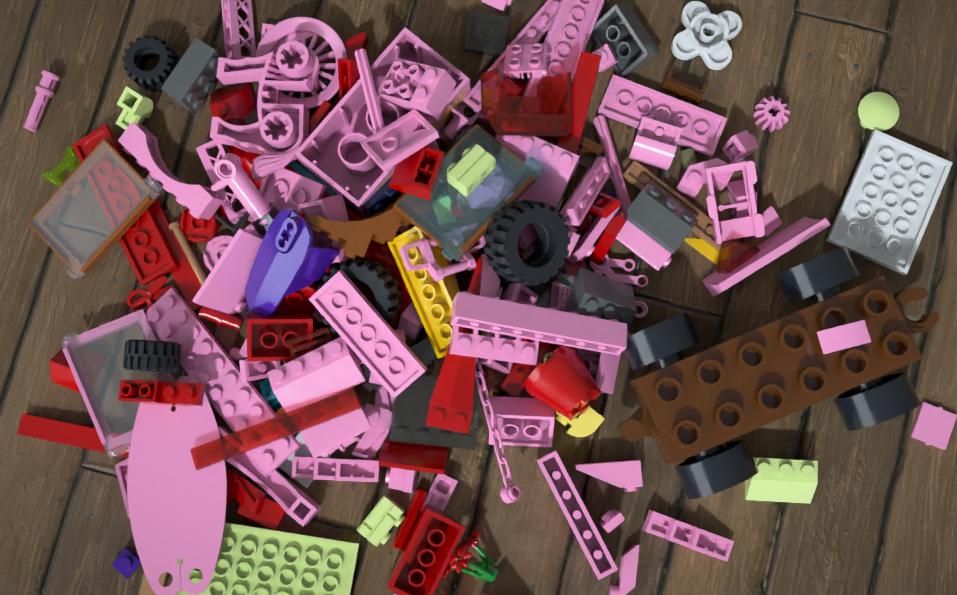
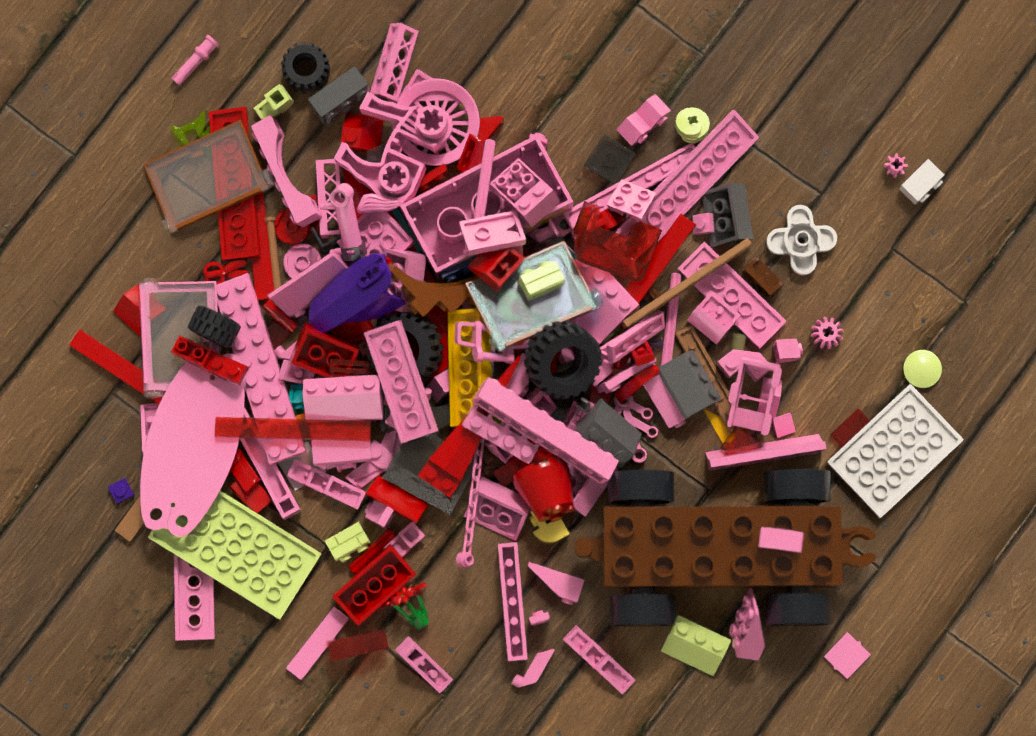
camera: 15 degrees right, 0 degrees up
(614, 121) = (686, 284): none -> medium nougat tile
(833, 442) = (747, 630): none -> bright pink slope
(834, 197) = (850, 427): none -> clear red tile

